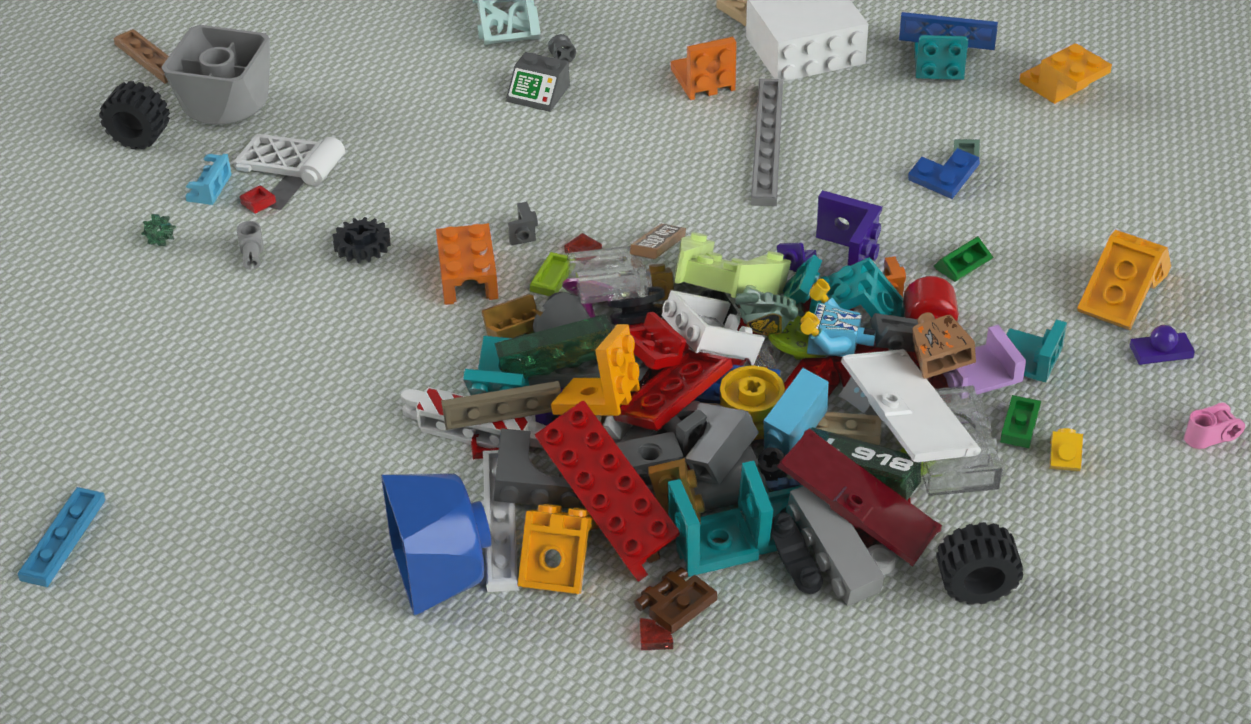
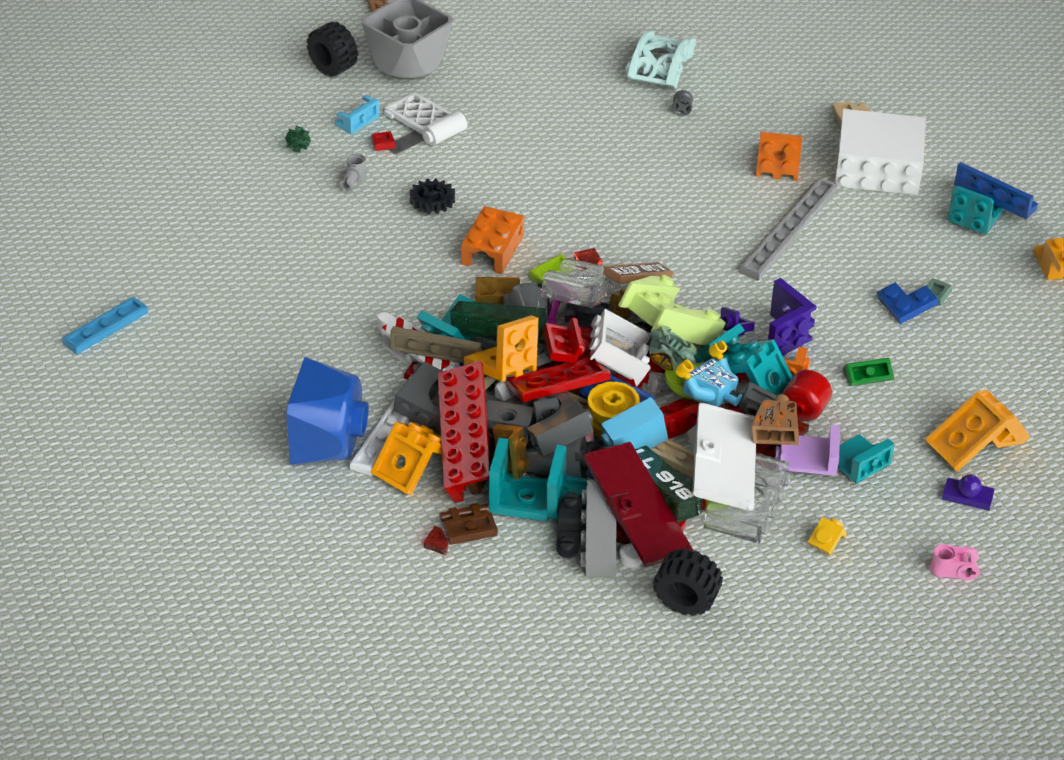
camera: 25 degrees right, 0 degrees up
(524, 228) = (553, 229): dark grey bracket -> none
(538, 81) = (645, 122): slope -> none
(1020, 421) = (810, 502): green plate -> none

